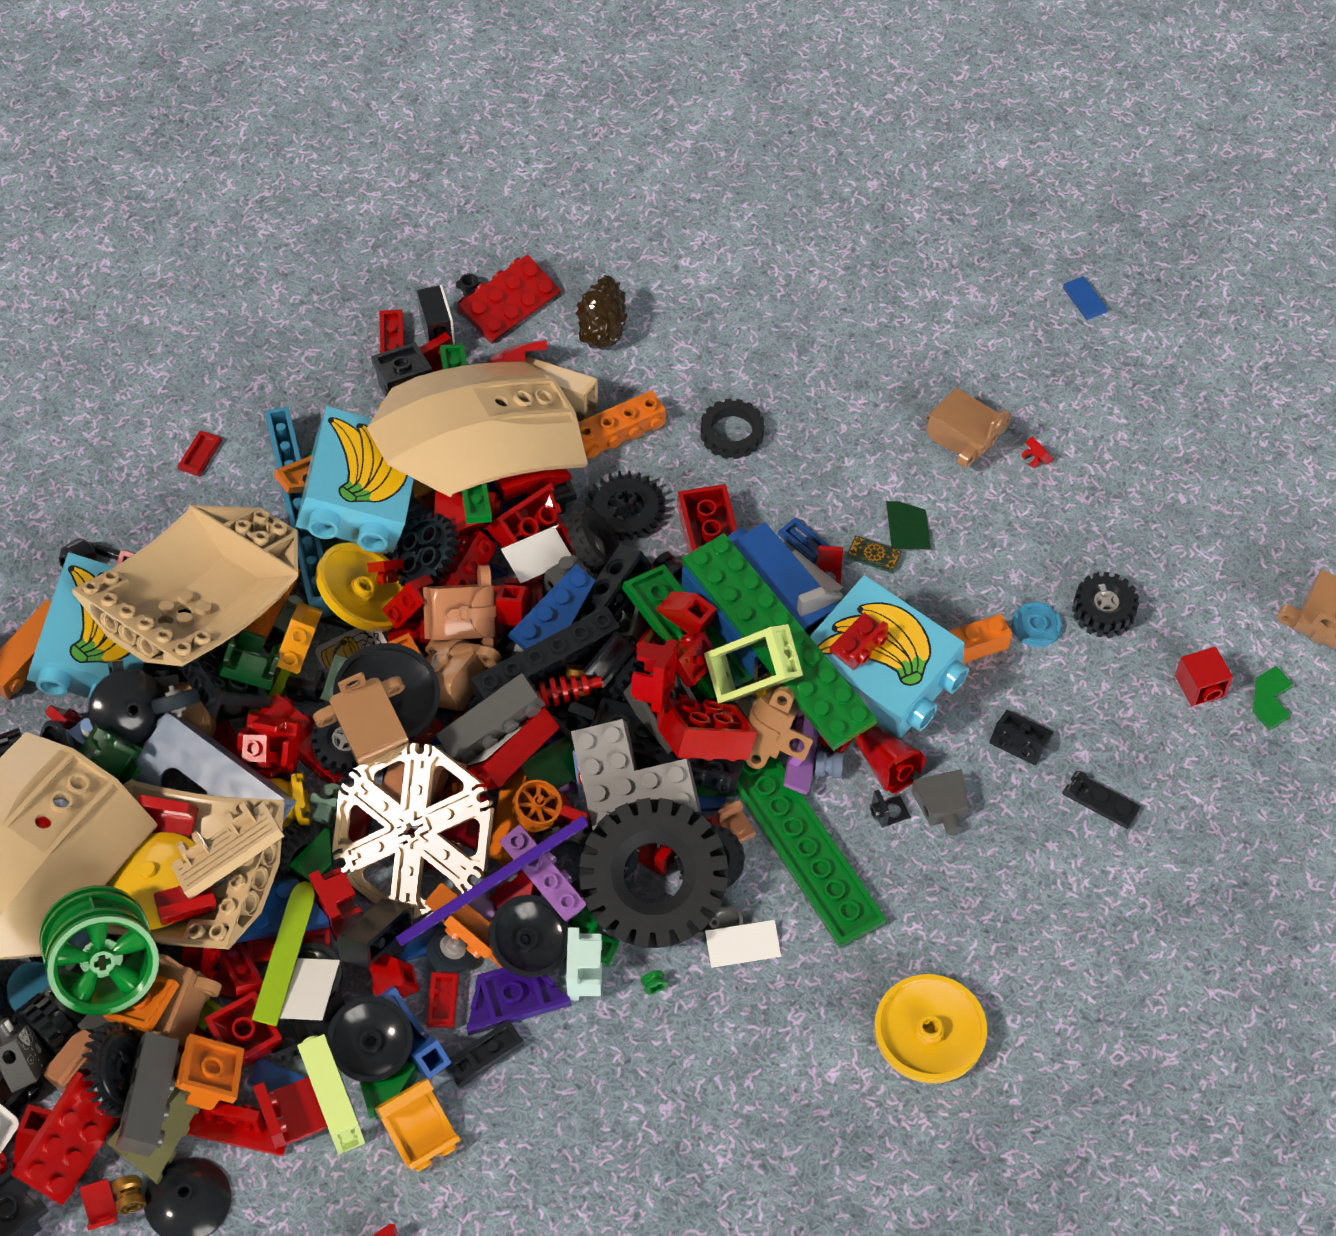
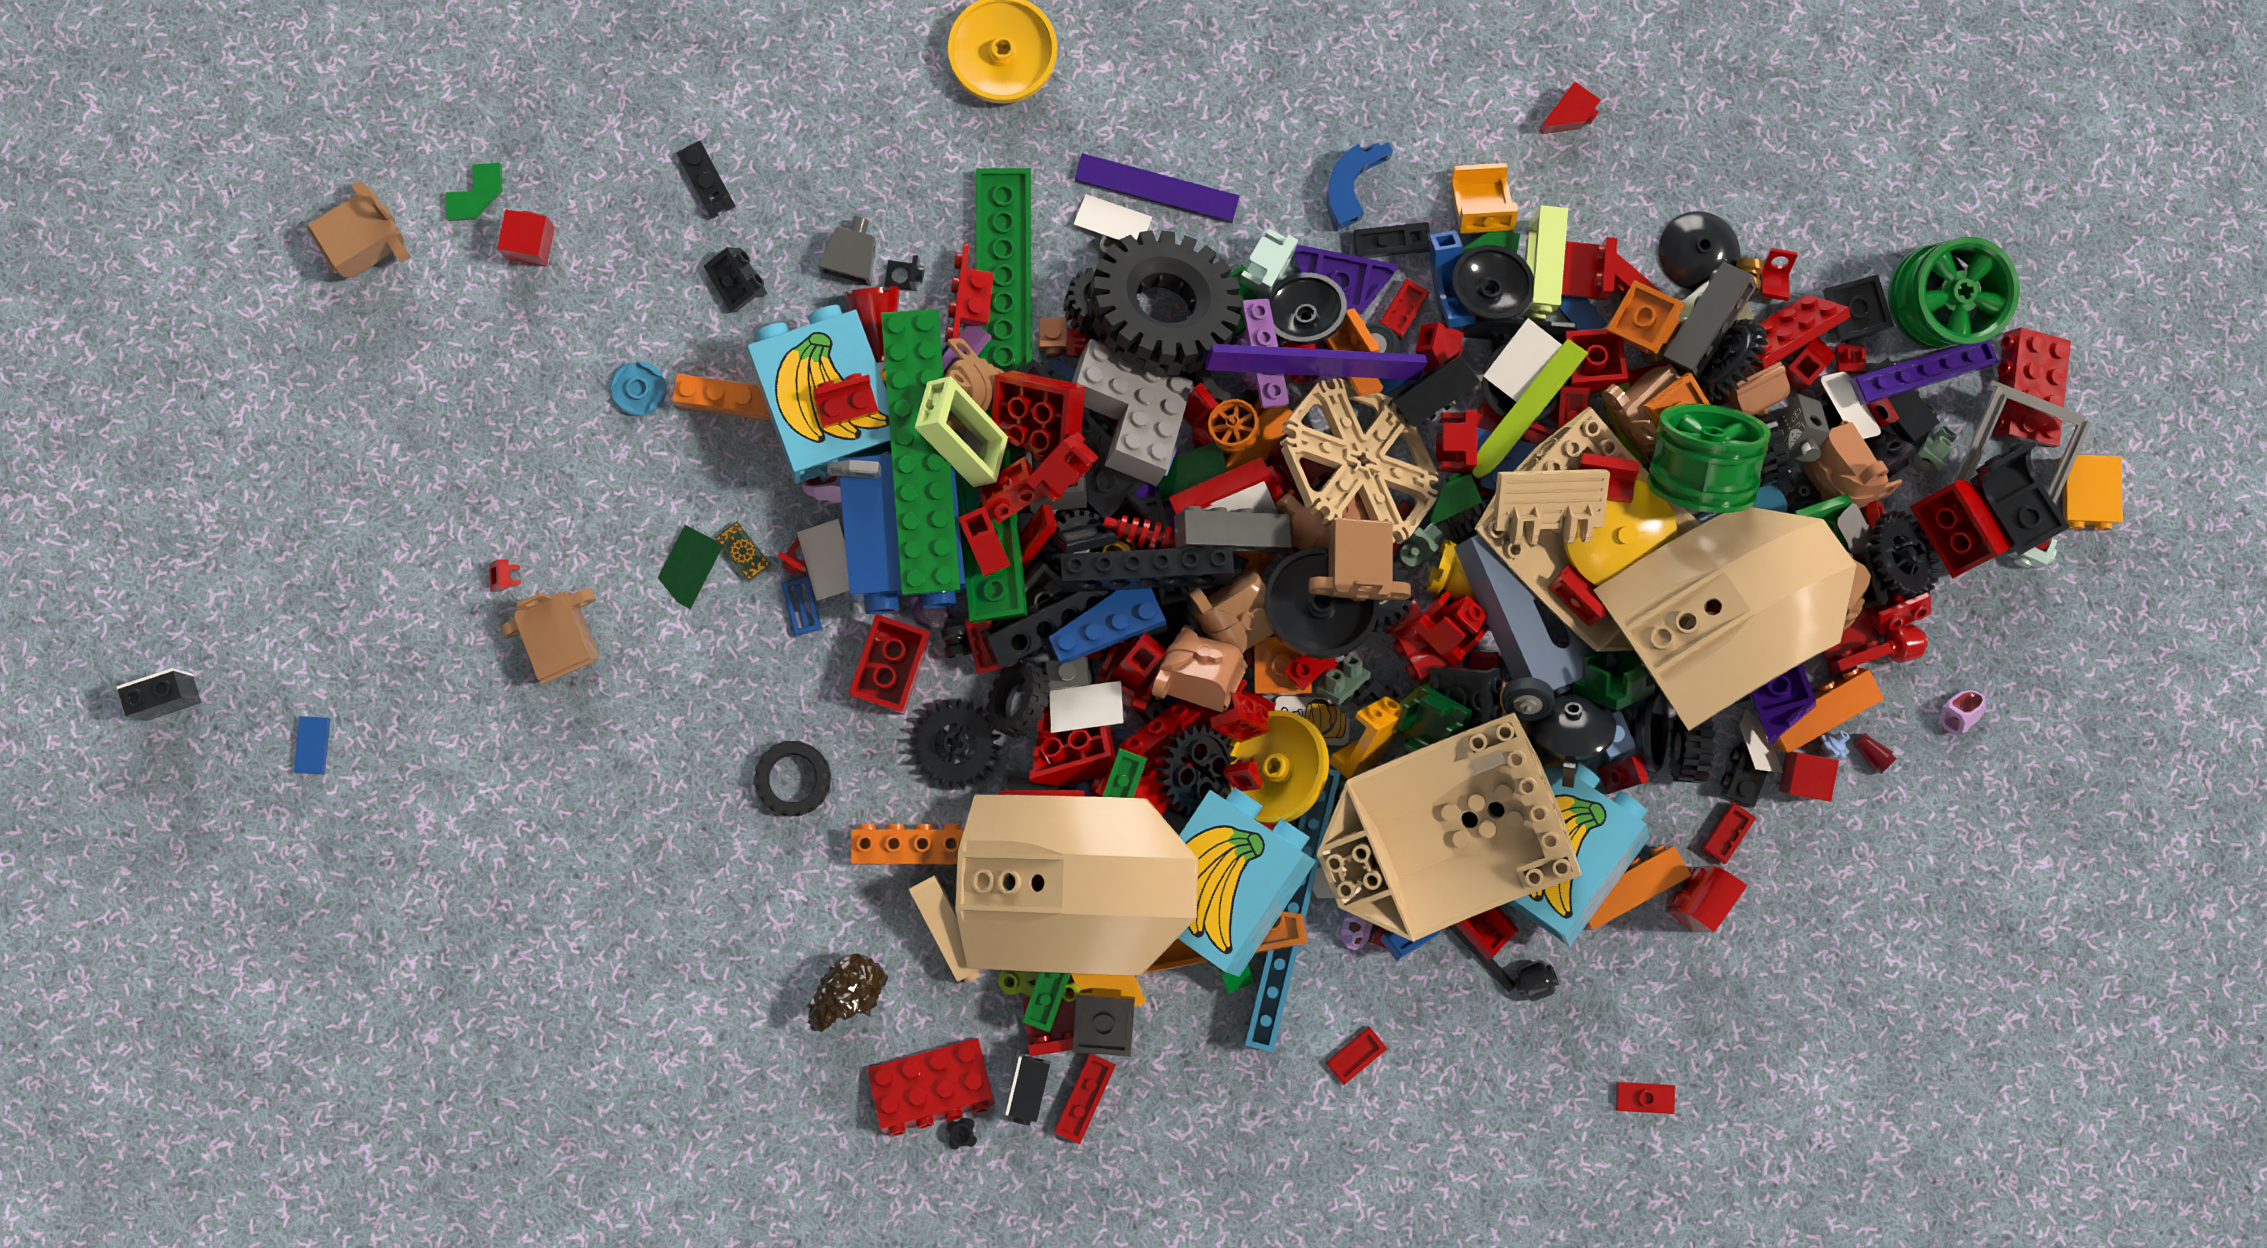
camera: 160 degrees left, 25 degrees up
(517, 352) = (966, 994): red slope -> none
(549, 1061) = (1340, 195): none -> blue arch
(654, 982) = (1212, 223): green bush -> none
(721, 991) = (1157, 188): none -> dark purple tile
(819, 808) = (972, 295): none -> red bracket
(1104, 592) = (553, 354): black wheel -> none
(1208, 268) = (158, 694): none -> black piece

